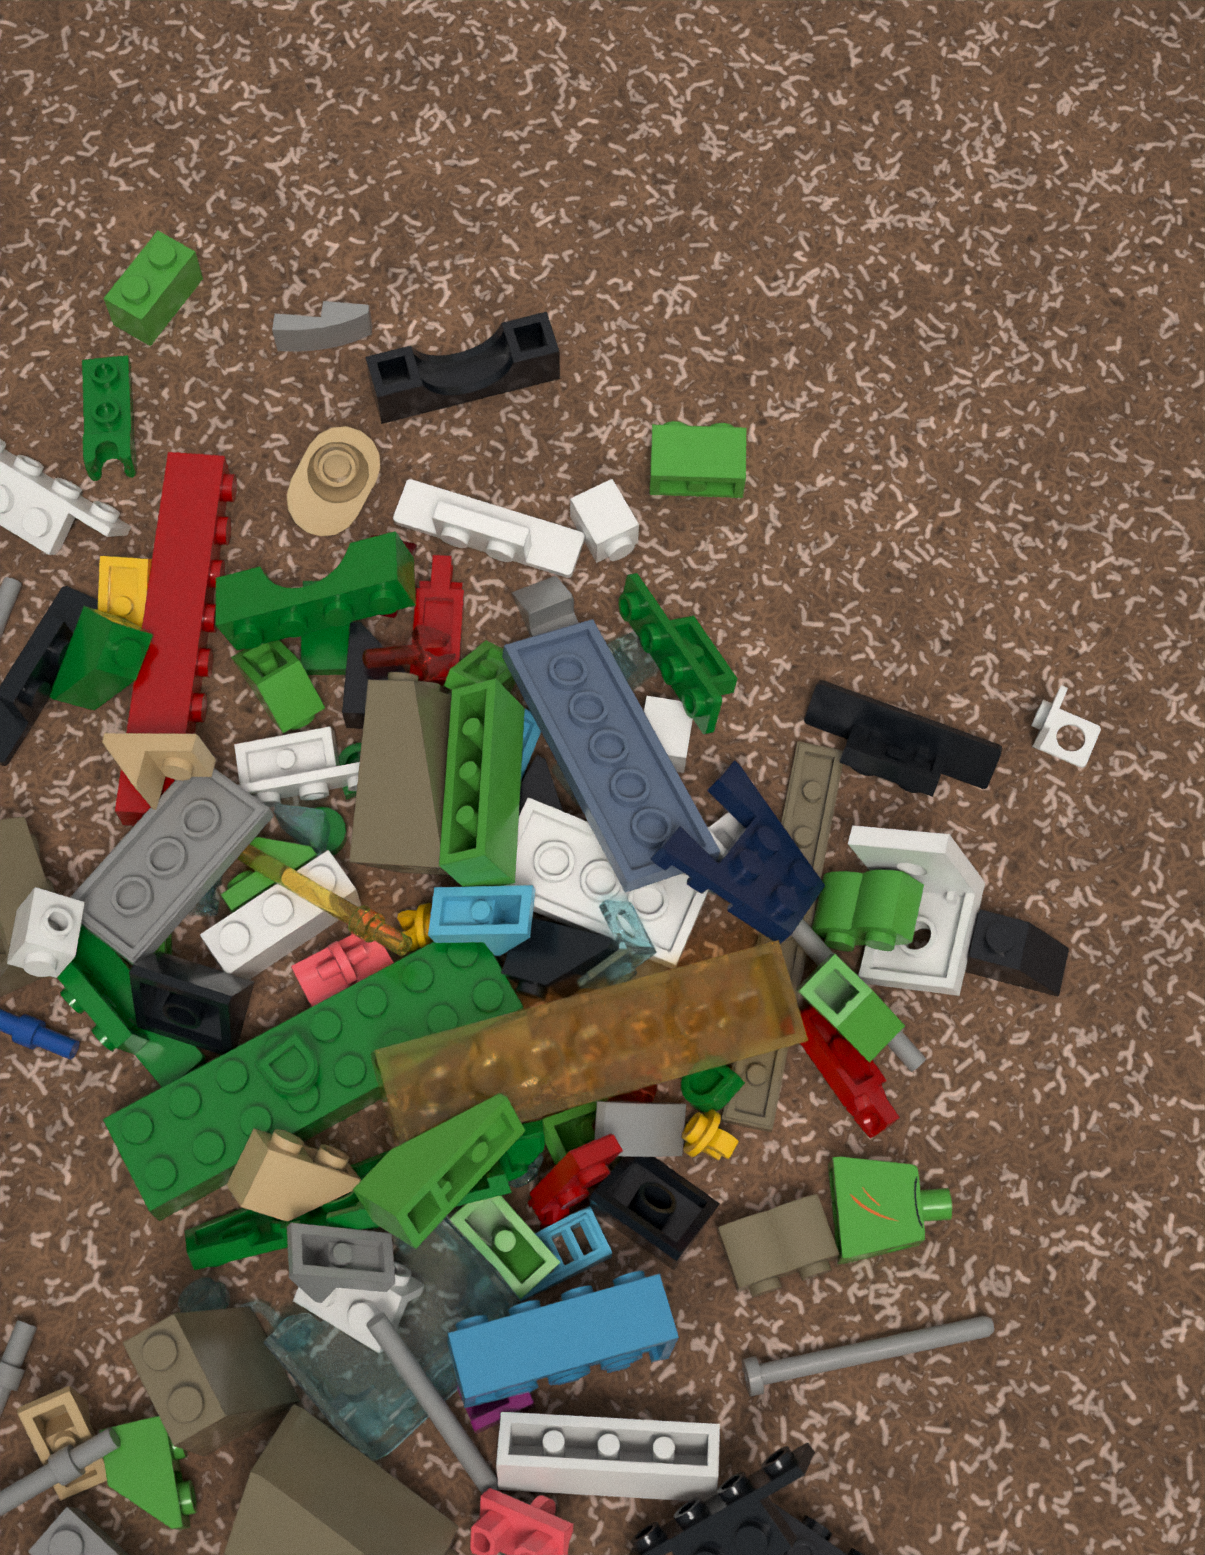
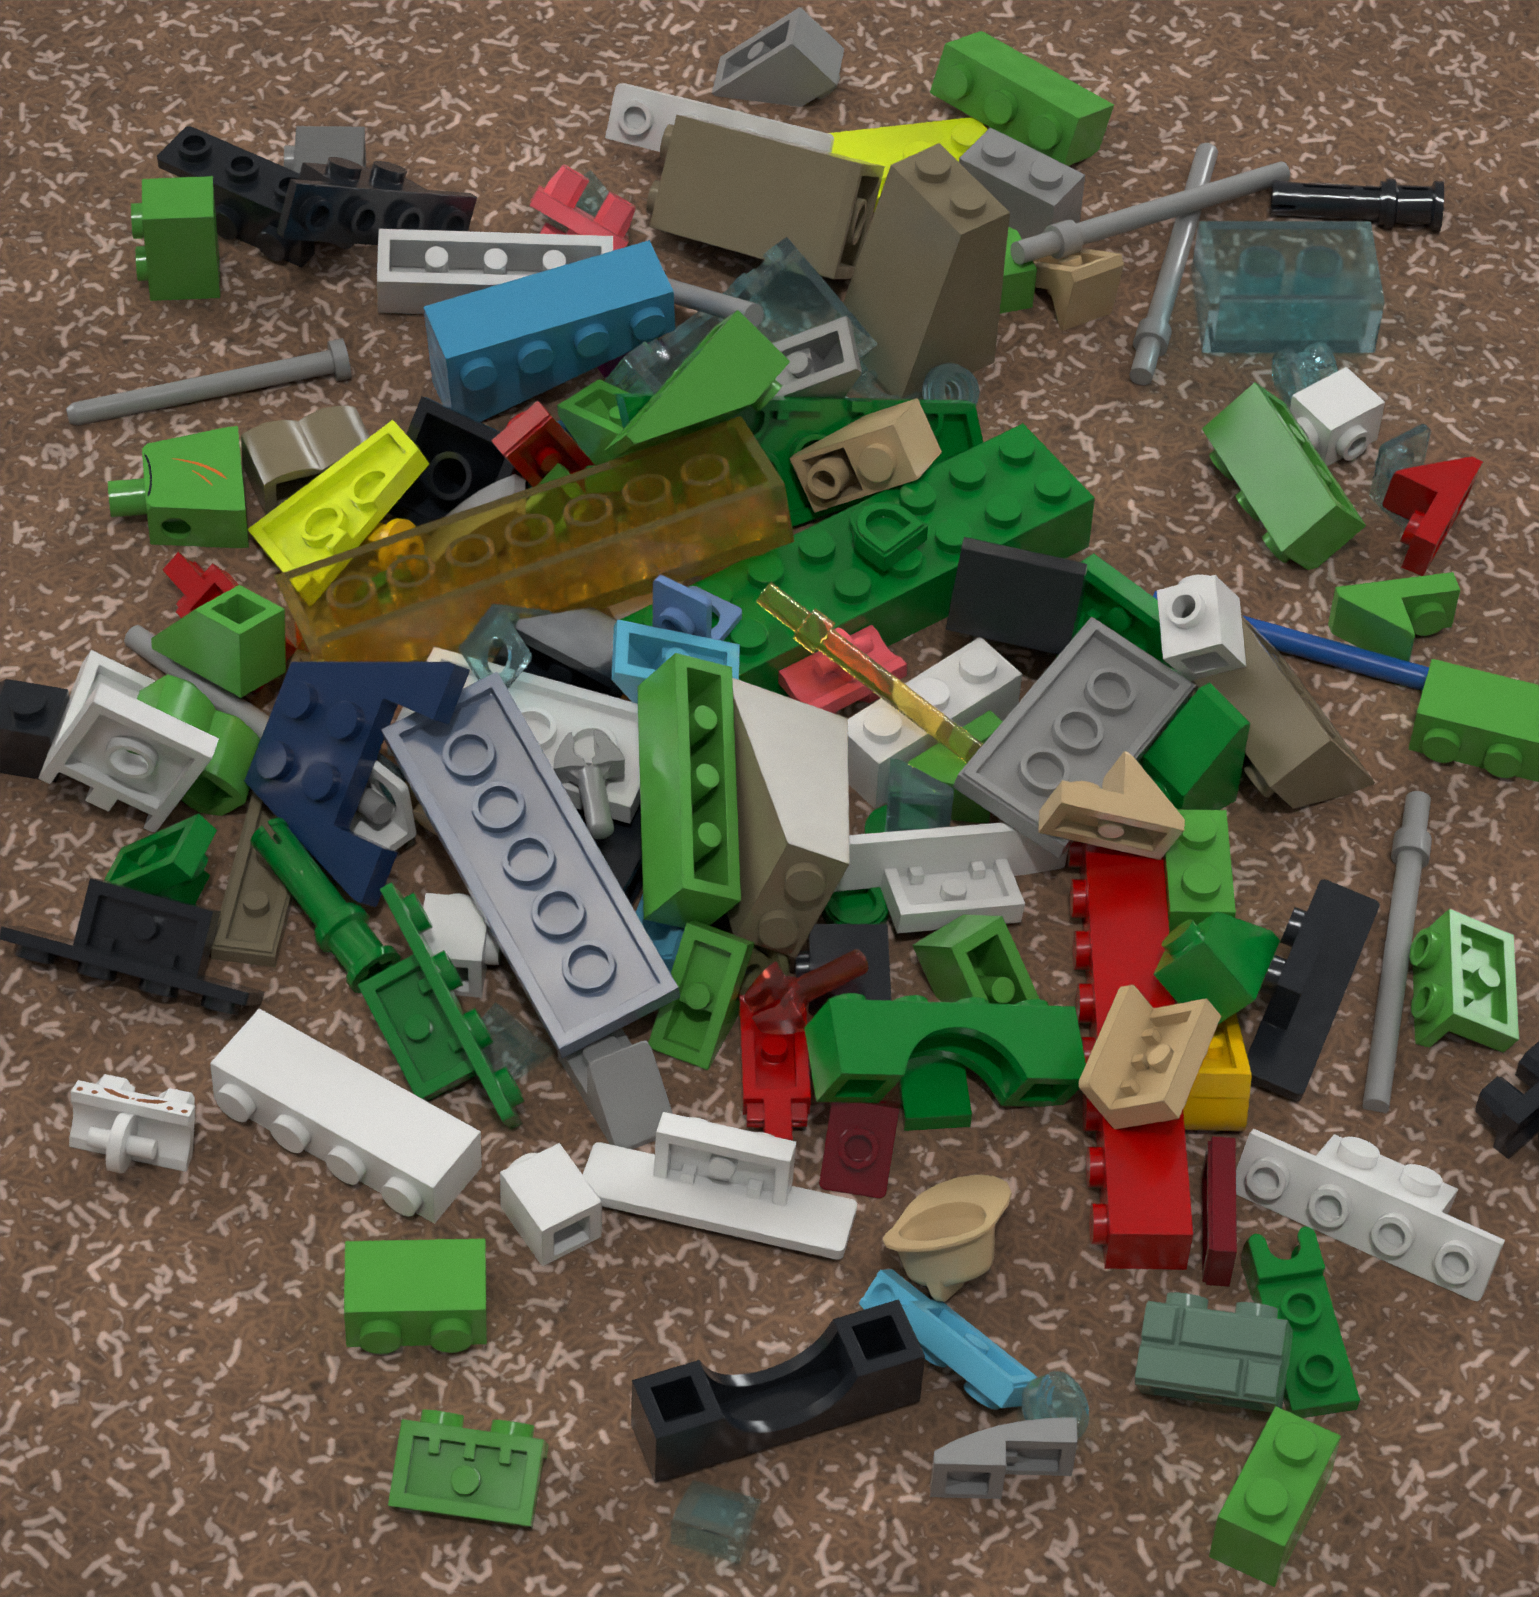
camera: 175 degrees right, 20 degrees down
(74, 849) = (1200, 753): none -> green slope
(92, 770) = (1199, 869): none -> bright green brick
(144, 491) = (1219, 1211): none -> dark red tile
(170, 558) = (1147, 1058): none -> tan bracket
(172, 374) = (1214, 1353): none -> sand green brick
(282, 362) = (1056, 1397): none -> clear light blue tile
(339, 404) = (950, 1340): none -> medium azure hinge
(473, 961) = (691, 610): none -> medium blue bracket
(509, 302) = (714, 1521): none -> clear light blue slope
(557, 812) = (591, 779): none -> light grey bar
(664, 348) = (468, 1470): none -> bright green bracket
(745, 596) = (345, 1117): none -> white brick
(752, 755) = (339, 925): none -> green pin
(753, 1163) = (342, 502): none -> neon yellow wing
(884, 803) = (167, 861): none -> green slope
(907, 1505) = (178, 237): none -> bright green brick
(914, 608) = (132, 1125): none -> white hips

